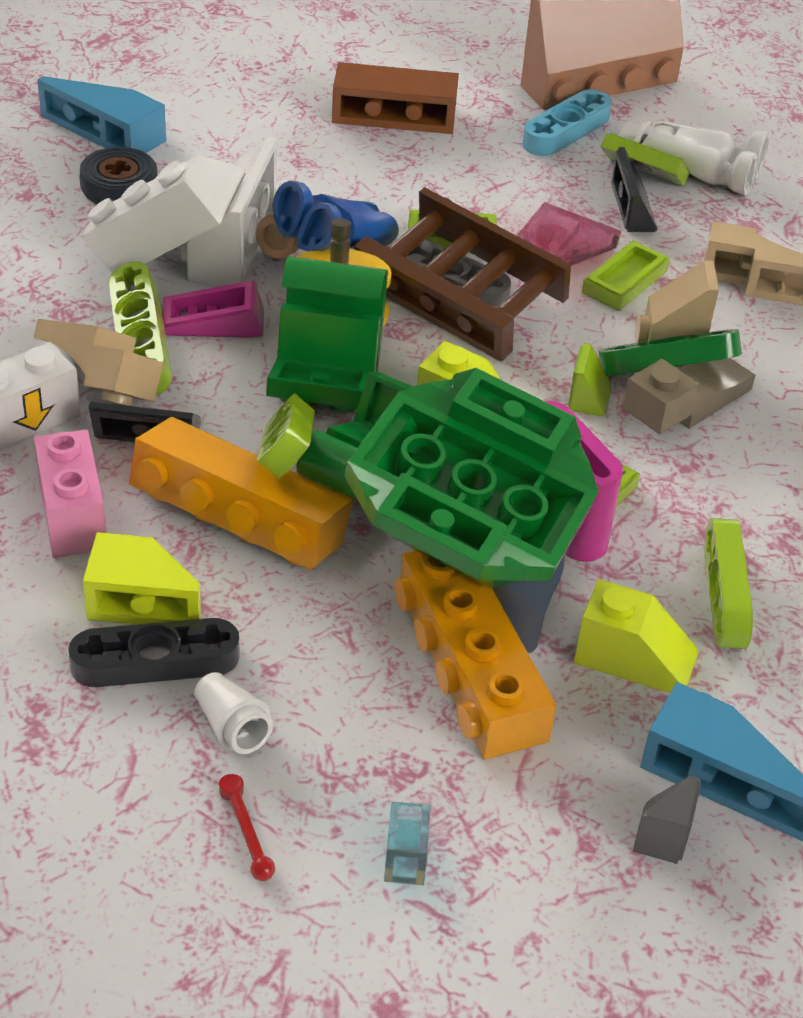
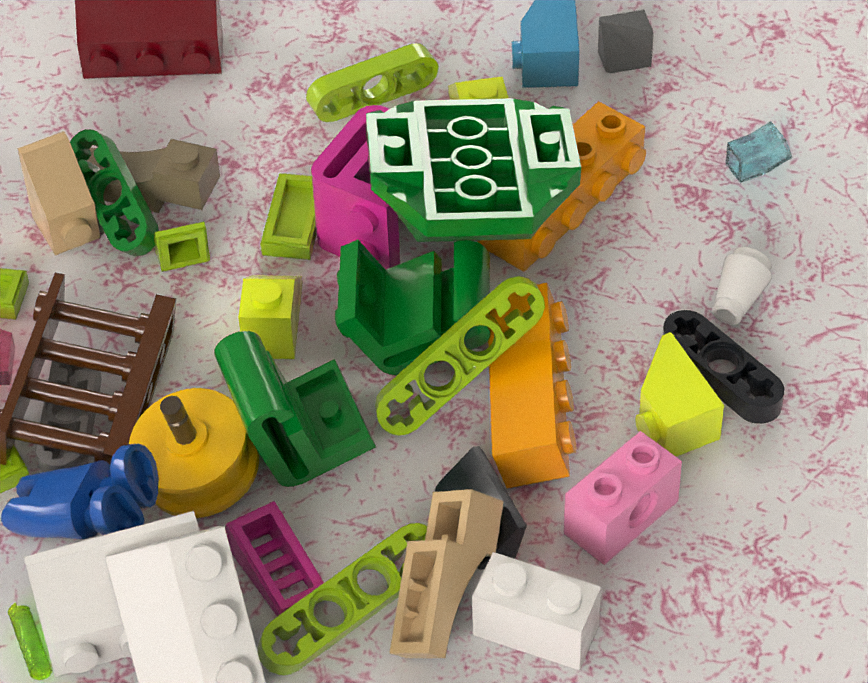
camera: 115 degrees left, 5 degrees up
(232, 789) = (792, 267): red hinge -> none

